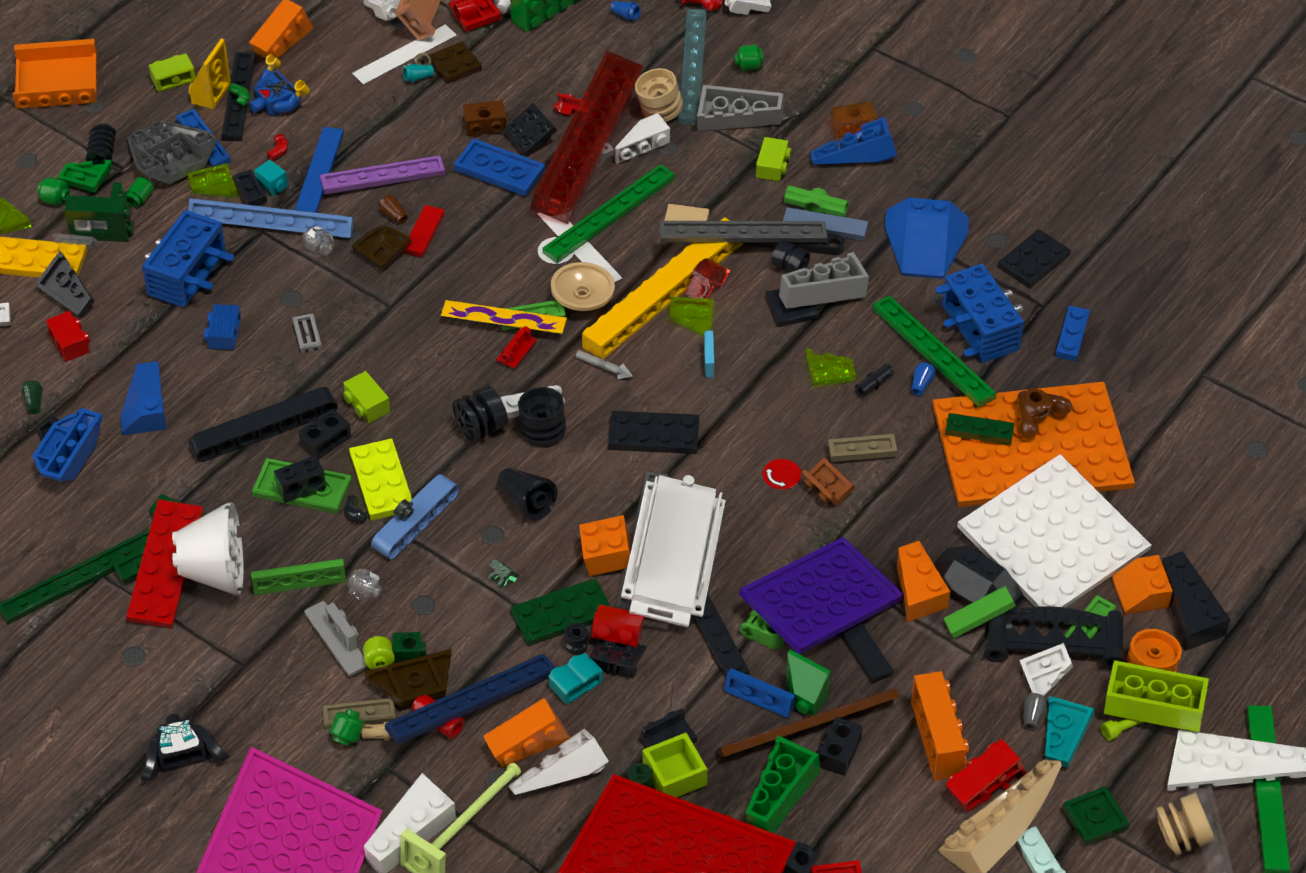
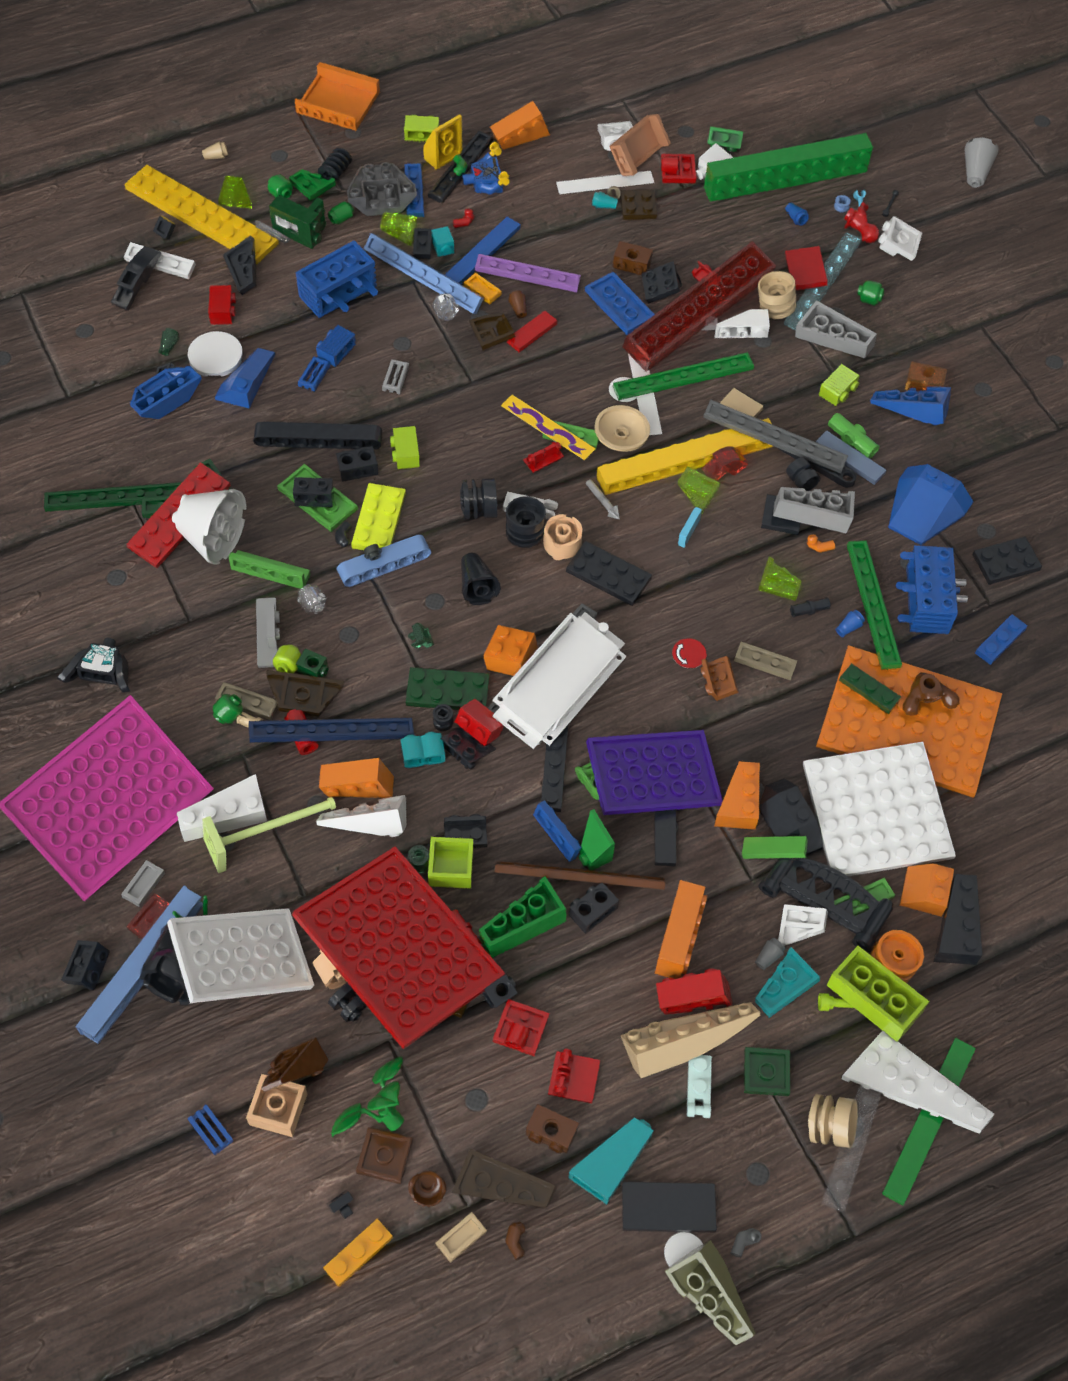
camera: 25 degrees right, 10 degrees up
(93, 387) = (215, 354): none -> white tile
(216, 378) = (308, 384): none -> blue tile
(344, 207) = (483, 288): none -> light orange plate
(588, 415) = (562, 537): none -> light nougat brick
(670, 55) = (806, 267): none -> red tile
(846, 320) = (818, 546): none -> orange arm

